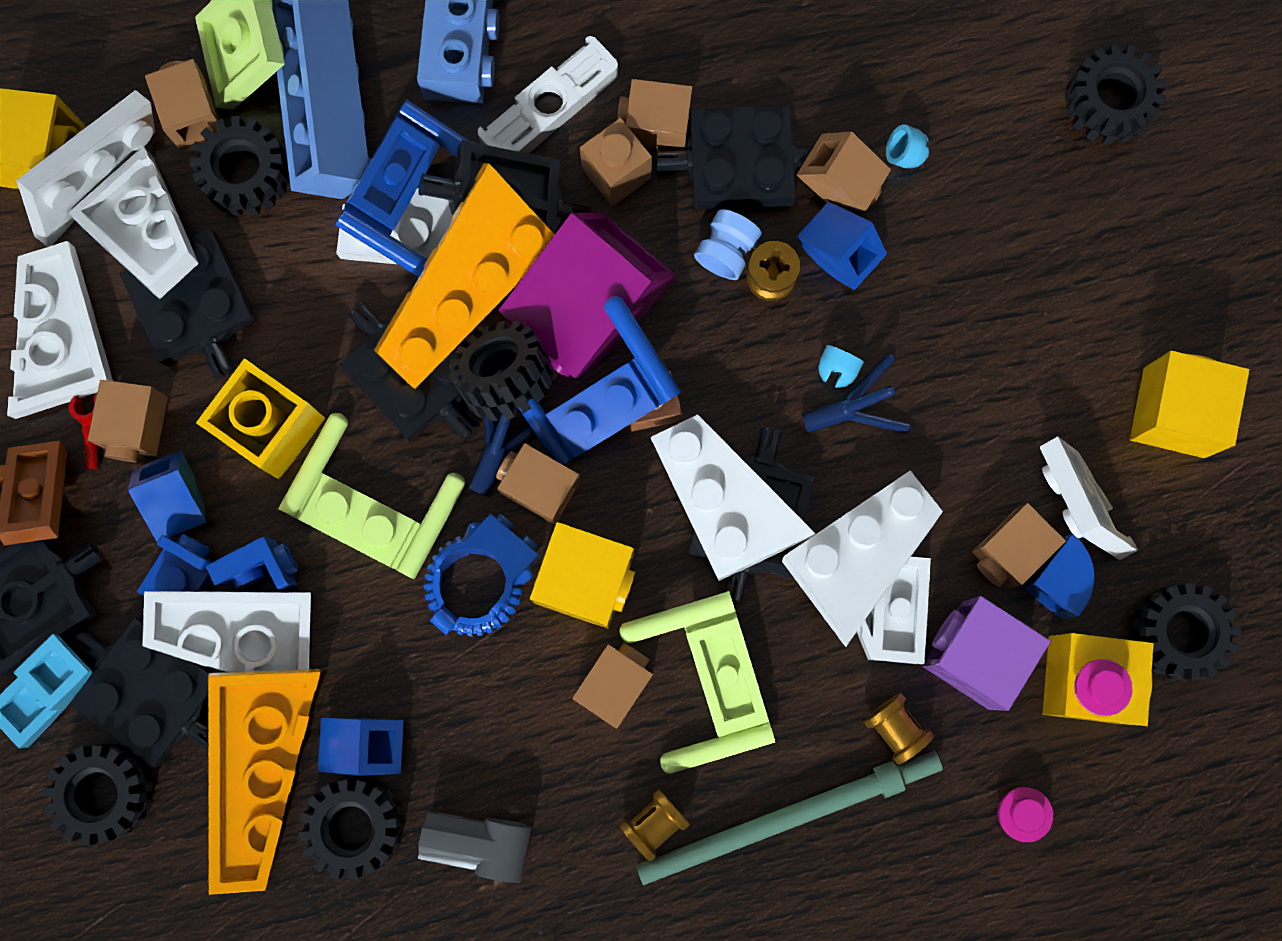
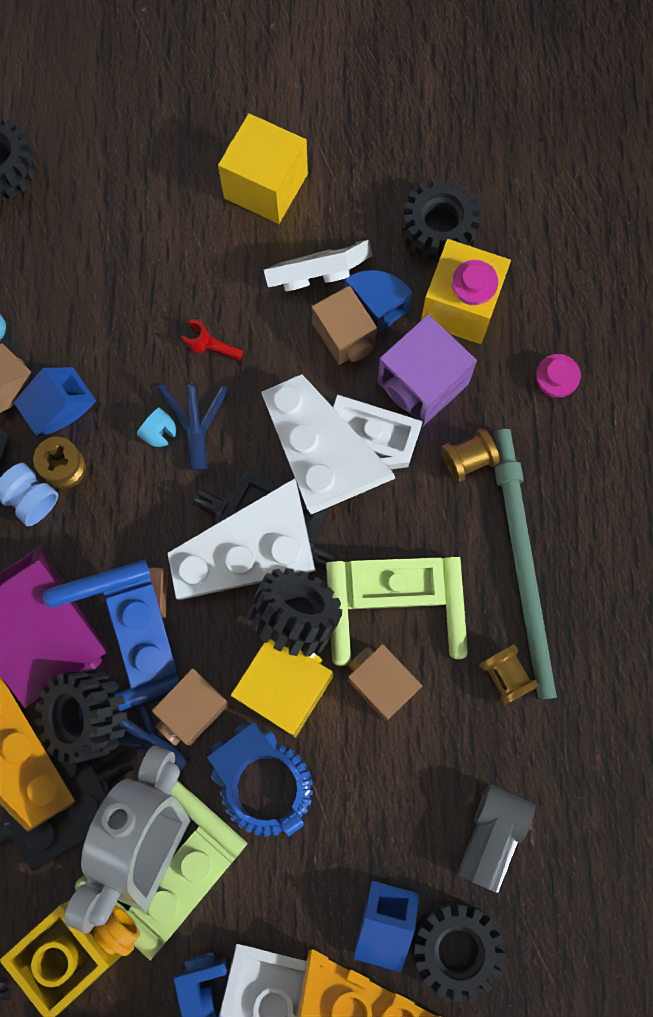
camera: 75 degrees left, 5 degrees down
(297, 466) = (117, 933): none -> light orange plate
(385, 457) = (130, 843): none -> light grey piece
(643, 564) = (294, 612): none -> black tyre
(958, 394) = (205, 341): none -> red hand

